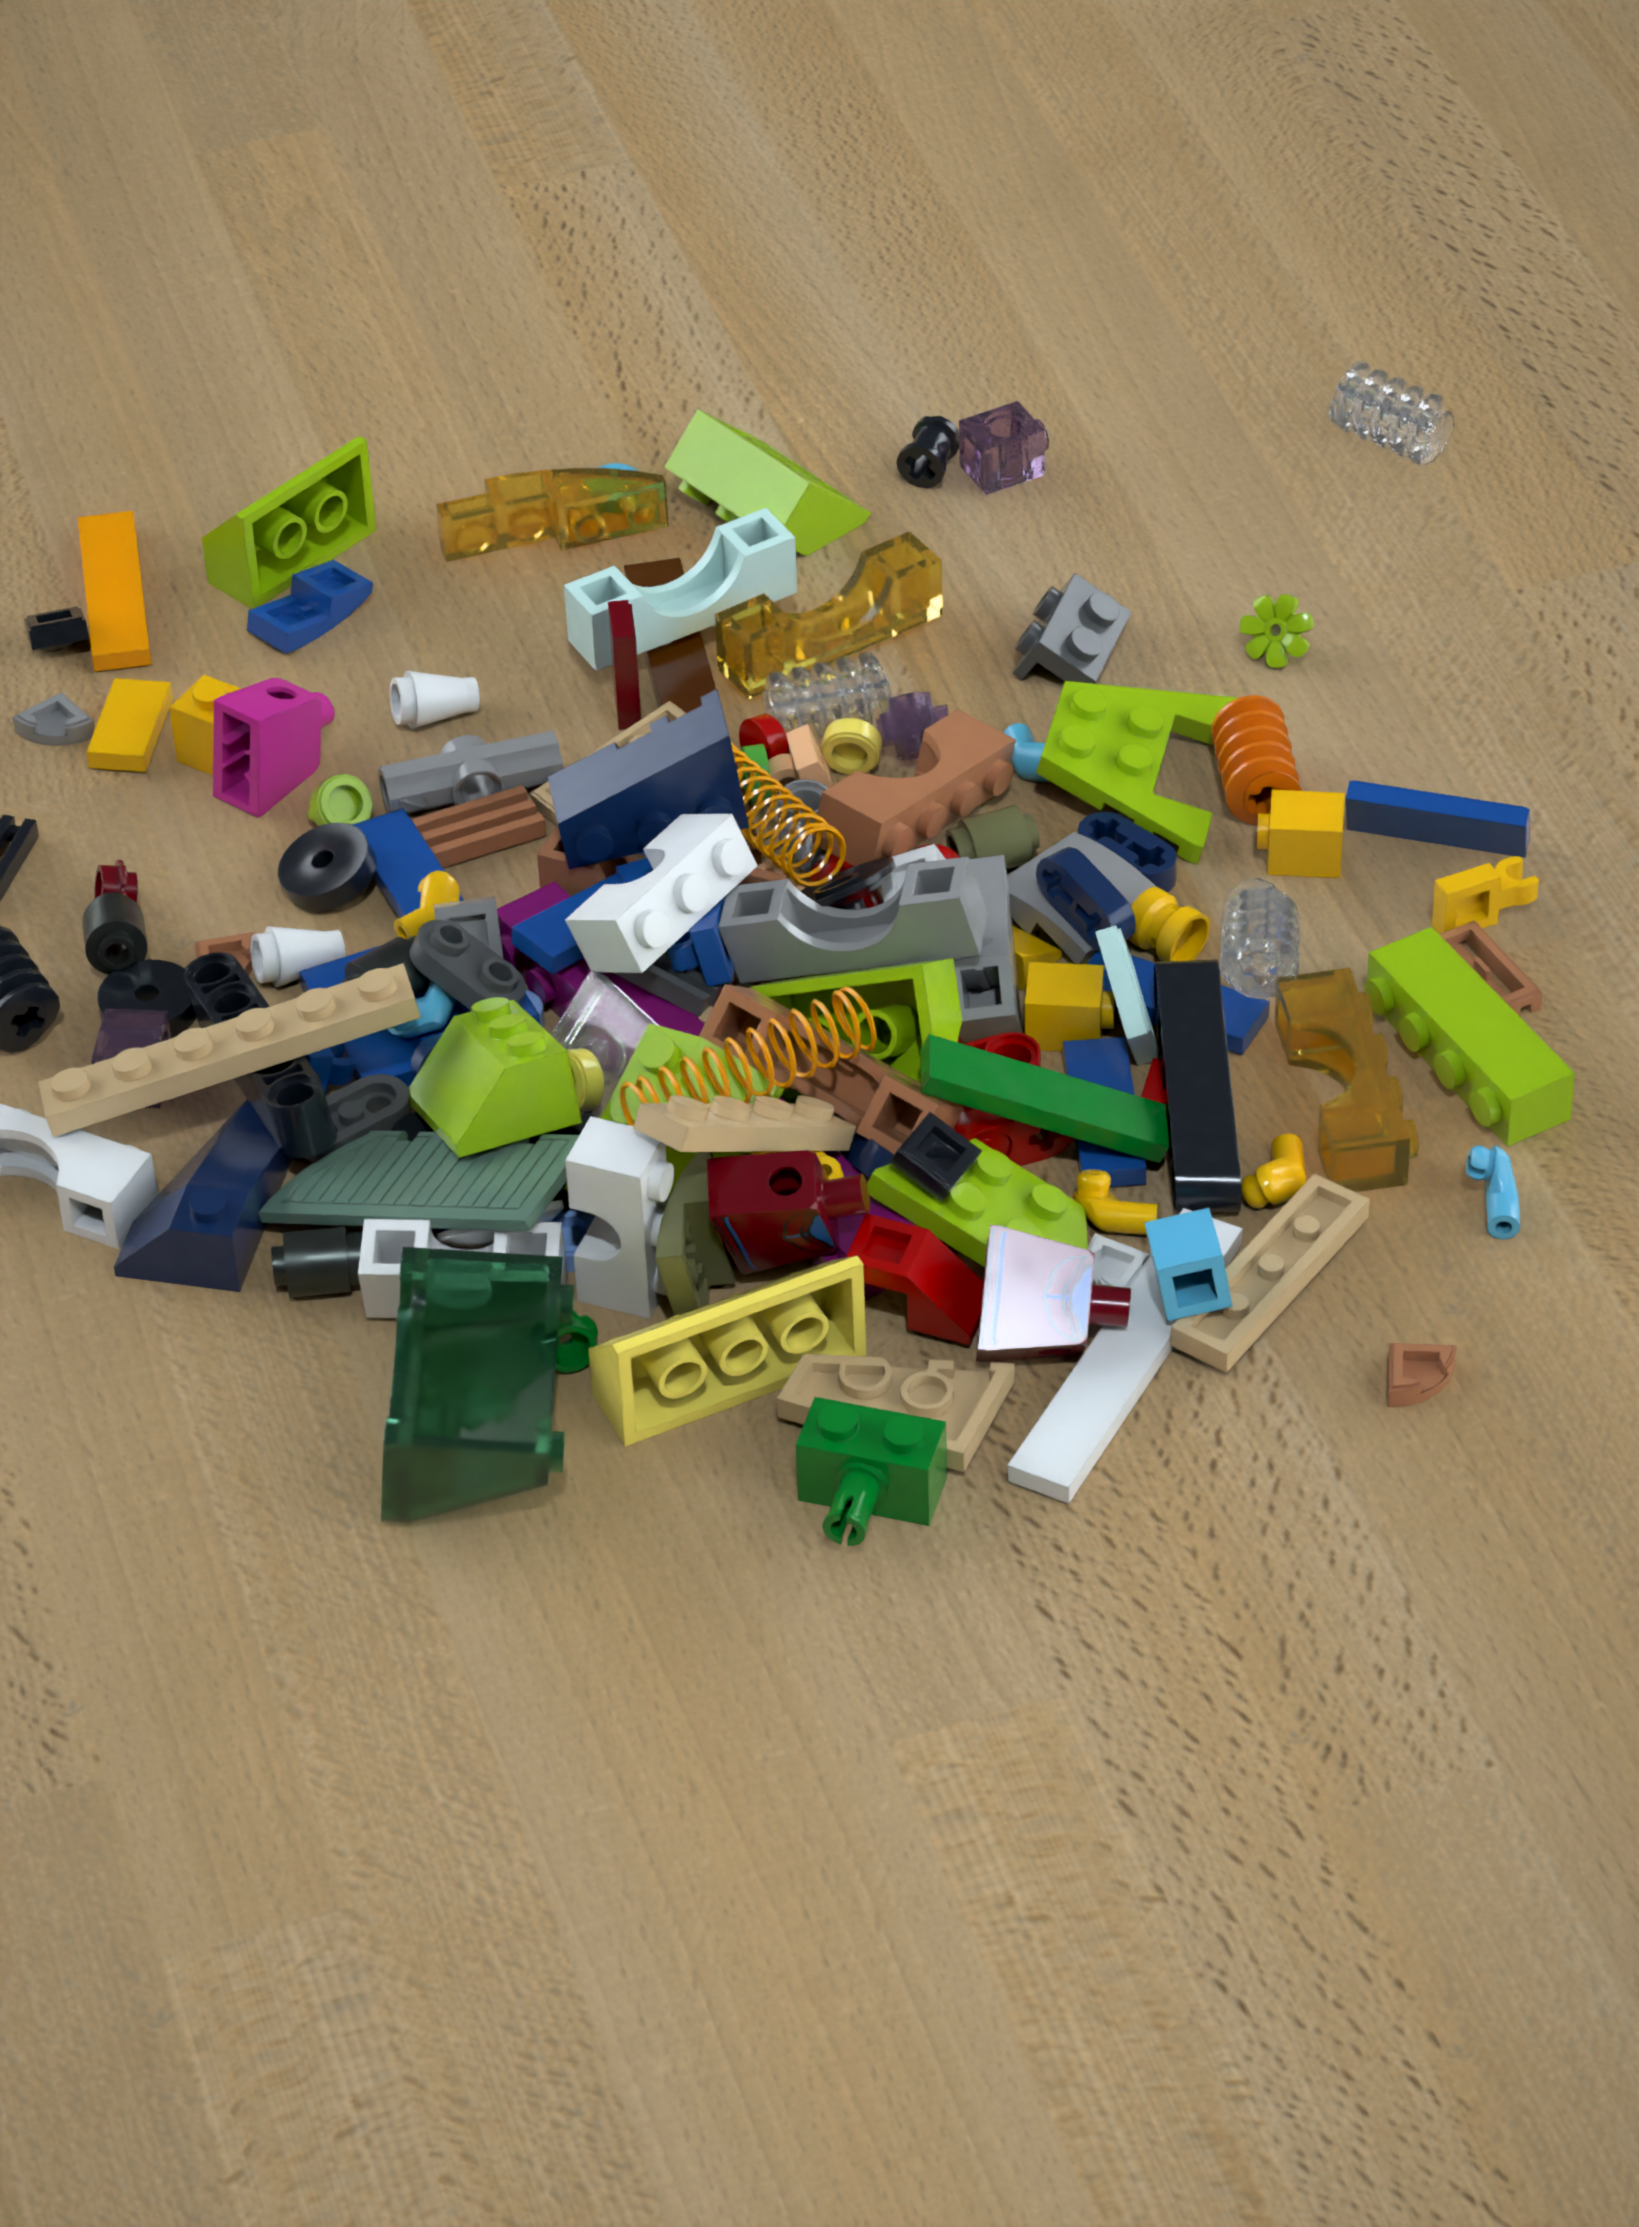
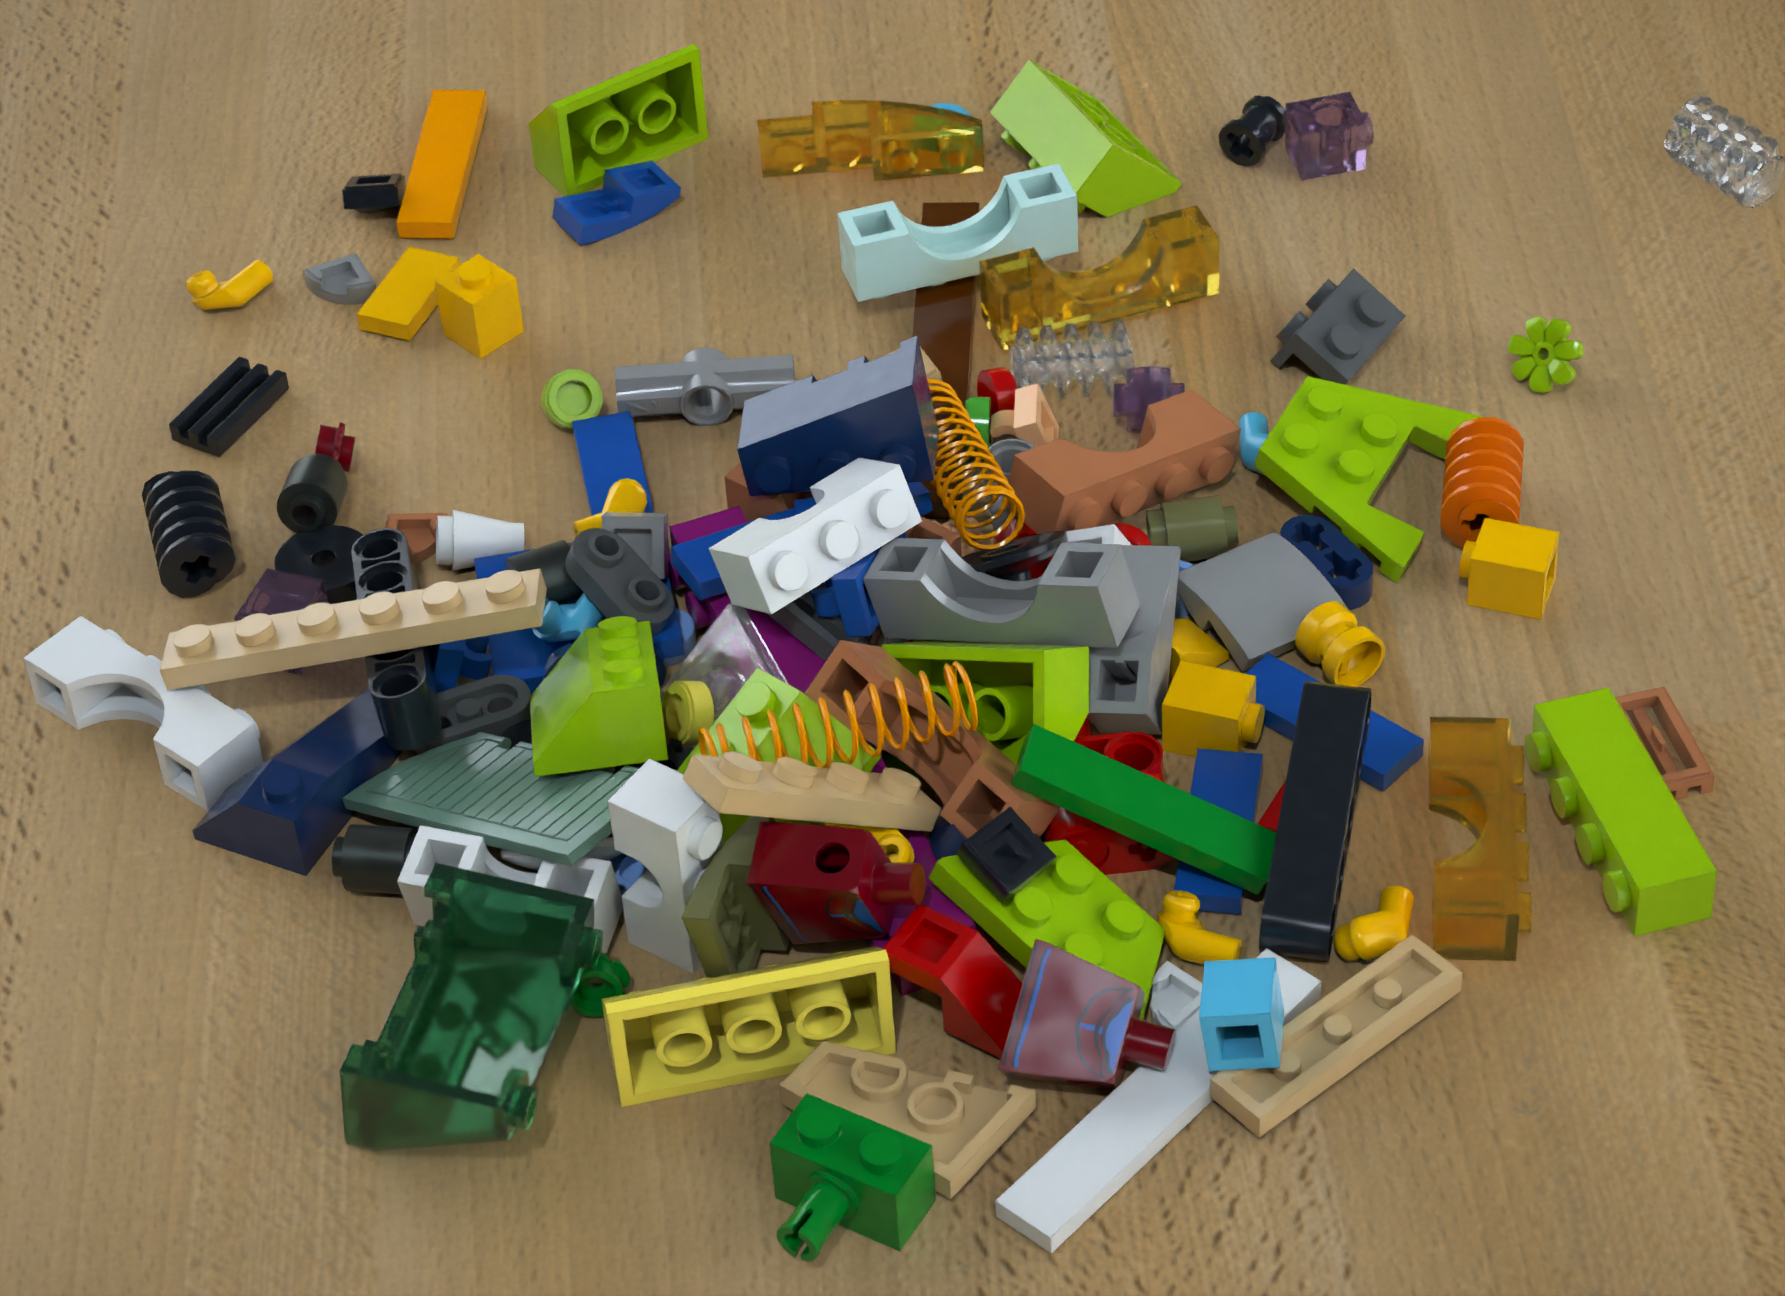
camera: 15 degrees right, 0 degrees up
(266, 742) = (520, 327): dark pink torso -> none
(327, 867) = (537, 458): black piece -> none
(429, 698) = (695, 306): white cone -> none
(481, 826) = (689, 441): nougat tile -> none
(624, 663) = (880, 296): dark red tile -> none
(851, 746) = (1082, 412): light yellow tile -> none
(1083, 895) = (1257, 603): dark blue beam -> none
(1128, 995) = (1272, 708): light aqua tile -> none
(1258, 938) = (1425, 672): clear piece -> none
(1418, 1372) = (1464, 1173): nougat tile -> none
(1438, 818) = (1655, 572): blue tile -> none
(1481, 894) = (1677, 659): yellow plate -> none
(1500, 1189) = (1610, 984): medium azure arm -> none

